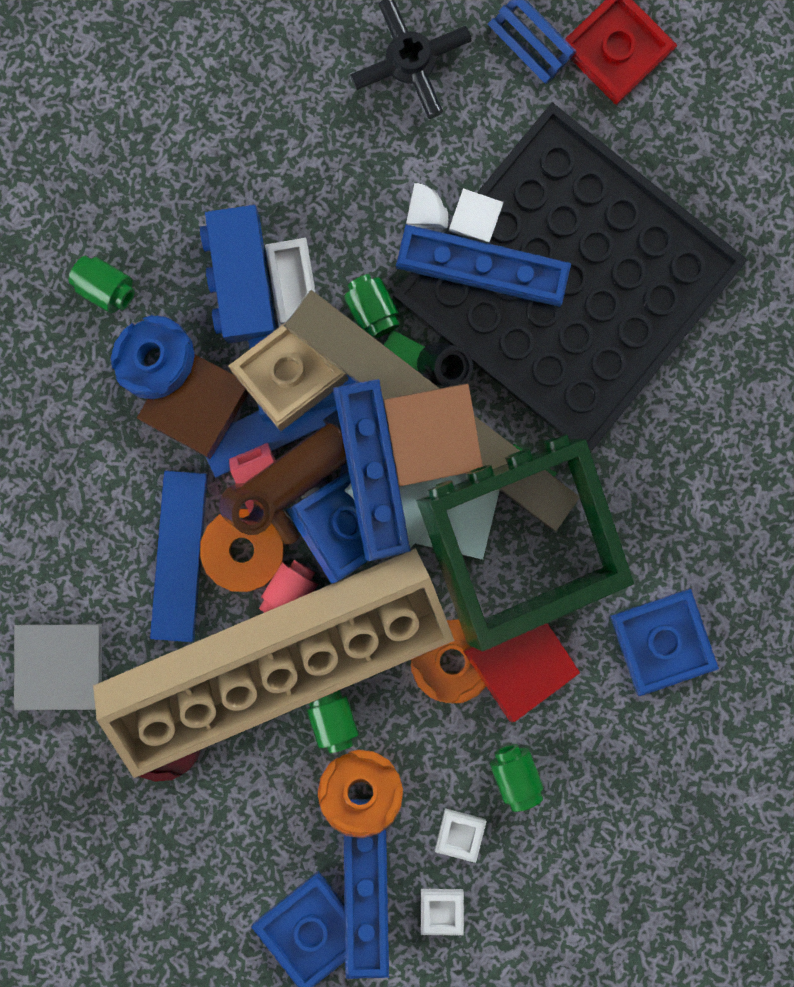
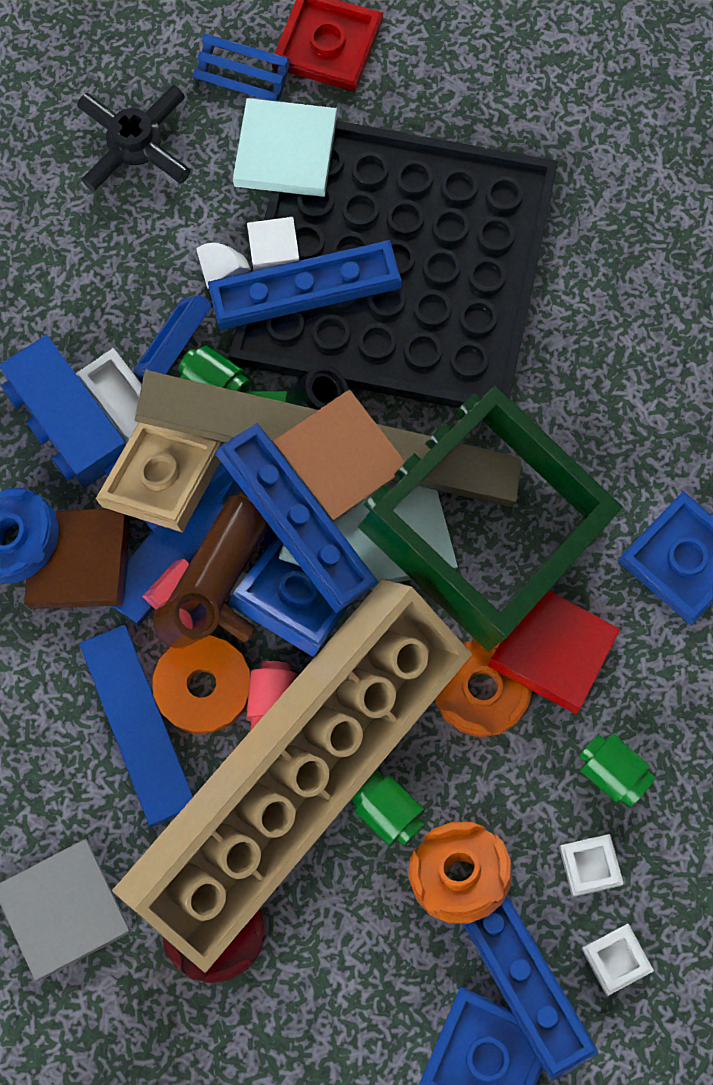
camera: 25 degrees left, 15 degrees down
(355, 255) = (173, 336): none -> blue tile
(529, 133) = (285, 147): none -> light aqua tile

